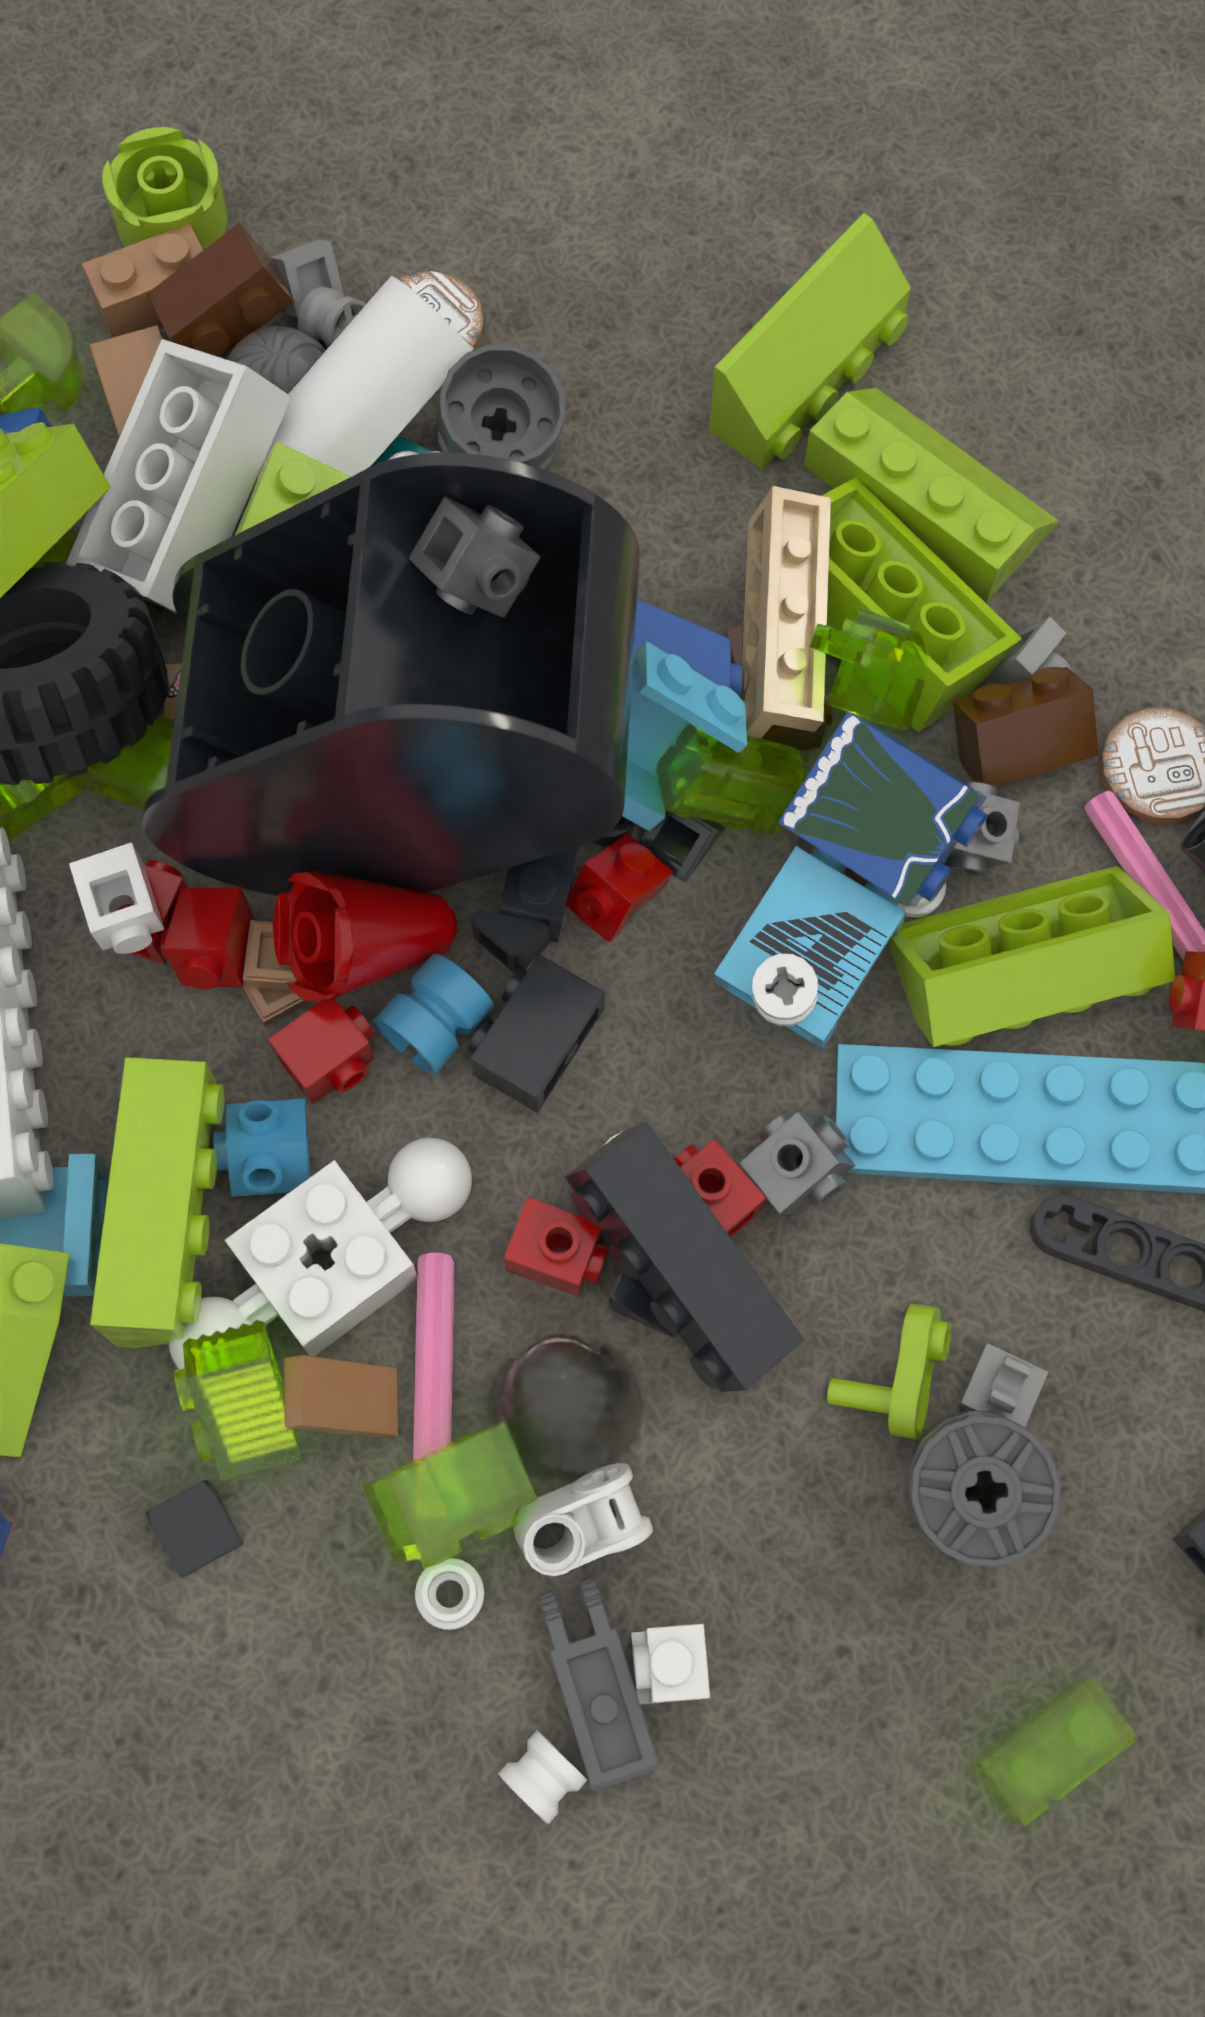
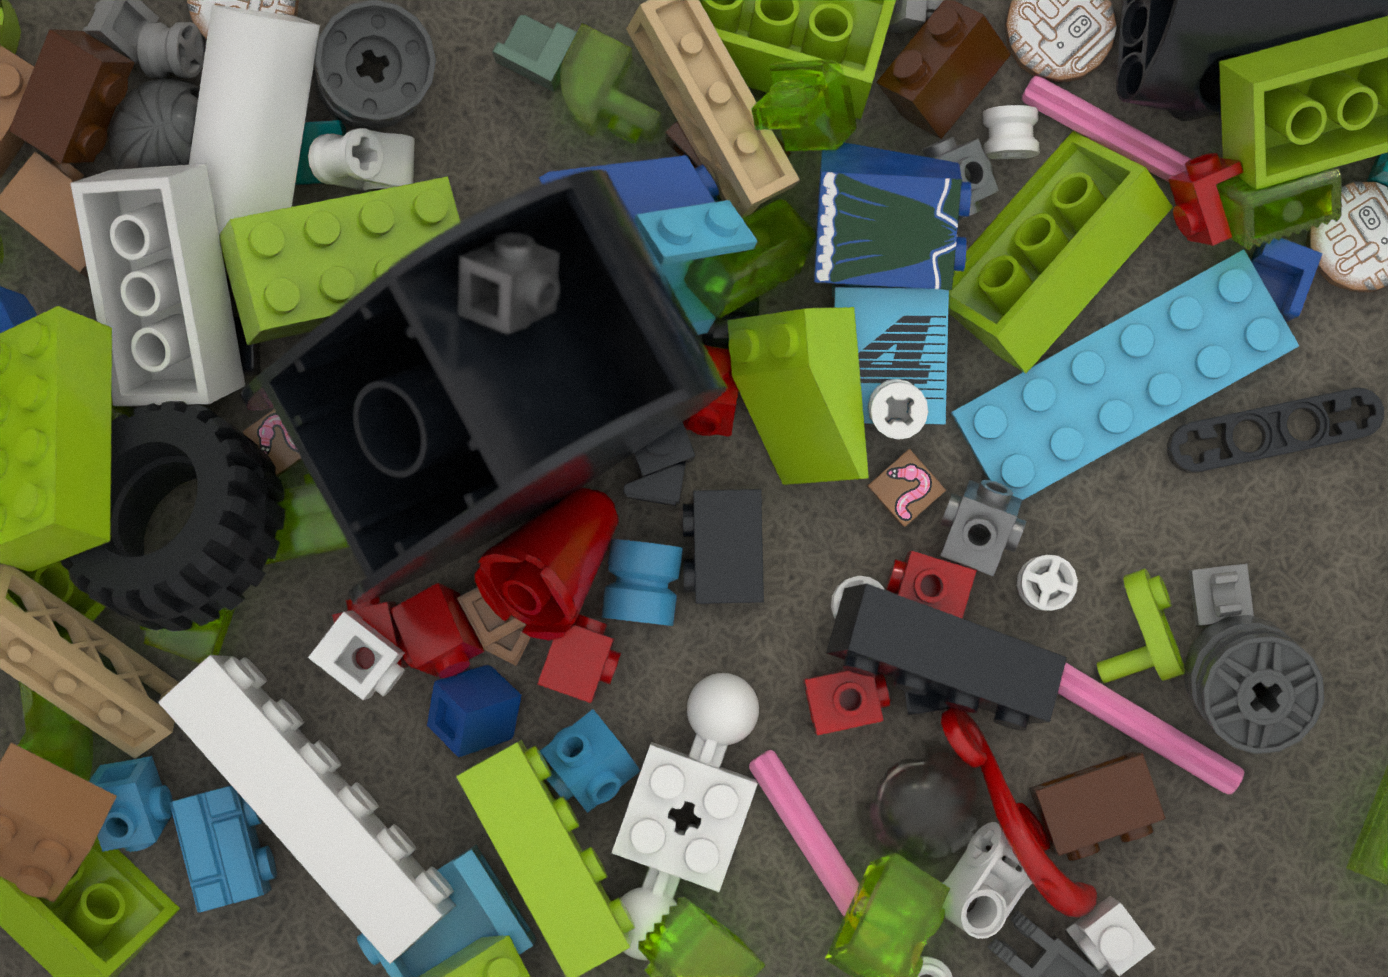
camera: 30 degrees left, 15 degrees up
(194, 1028) = (473, 710): none -> blue panel
(340, 1397) = (766, 907): medium nougat tile -> none
(649, 1482) = (1017, 821): none -> red plant
(656, 509) = (535, 51): none -> sand green panel
(688, 558) = (590, 85): none -> clear neon green brick
(705, 921) = (803, 391): none -> lime slope
(744, 1517) = (1098, 805): none -> reddish brown brick
(748, 1090) = (906, 488): none -> medium nougat tile
(839, 1253) = (1056, 585): none -> white wheel
(844, 1476) = (1150, 730): none -> bright pink axle
(1056, 825) = (1011, 132): none -> white wheel

